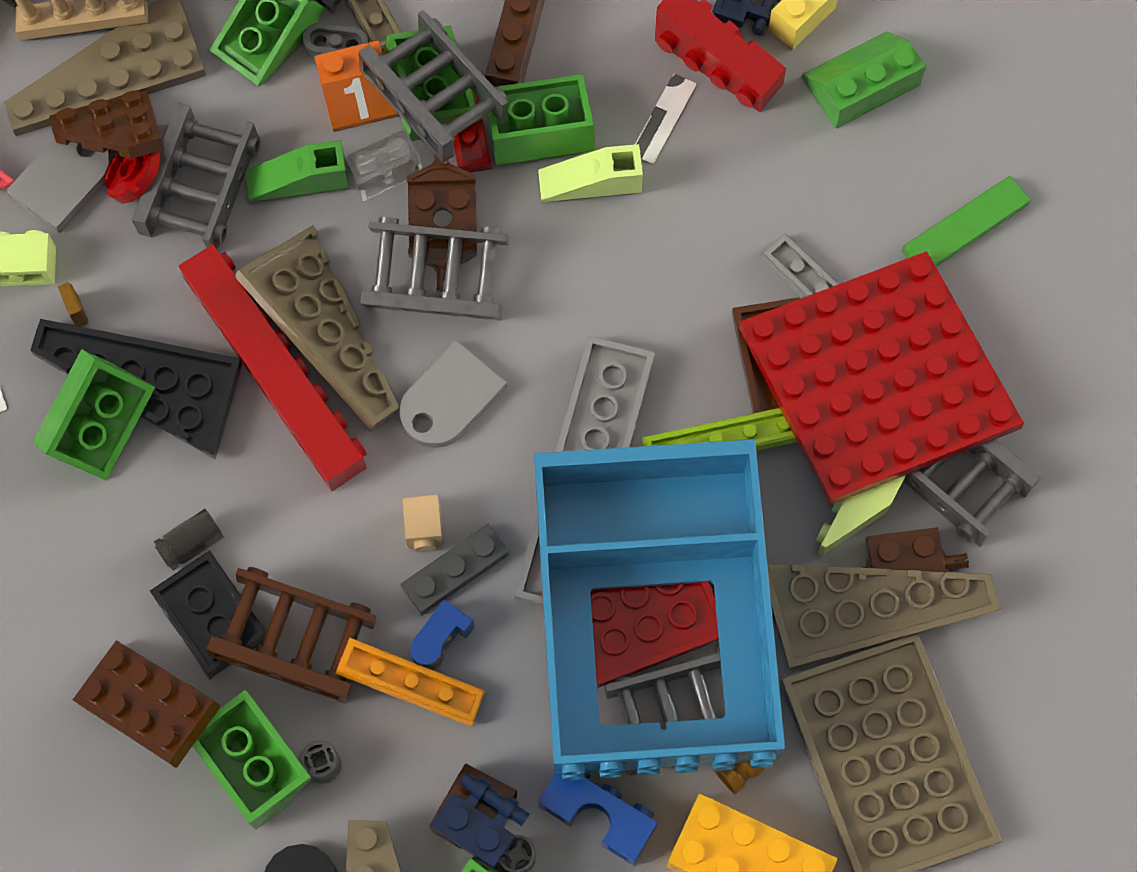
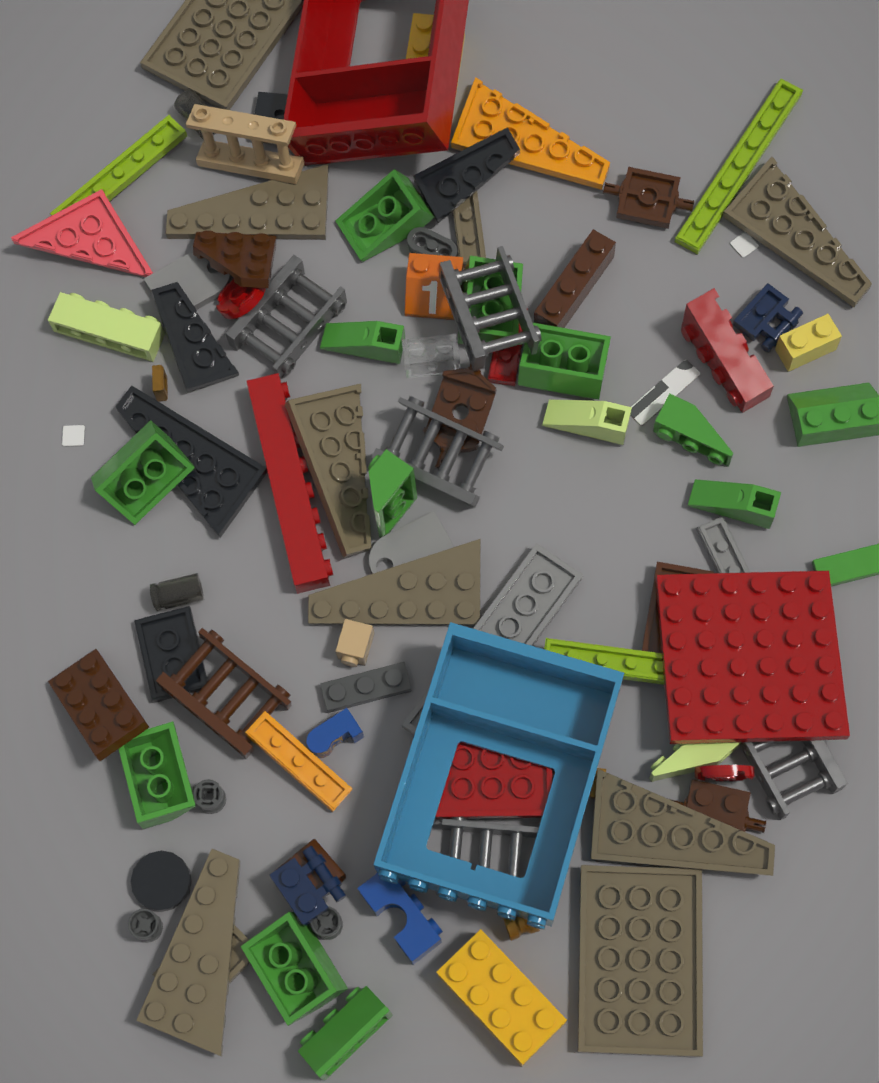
camera: 25 degrees right, 0 degrees up
(97, 248) = (193, 346): none -> black wing
(399, 330) = (391, 489): none -> bright green slope
(476, 437) = (418, 592): none -> dark tan wing
(706, 146) = (686, 425): none -> bright green slope
(794, 210) = (736, 501): none -> bright green slope
(902, 515) = (724, 772): none -> red tile

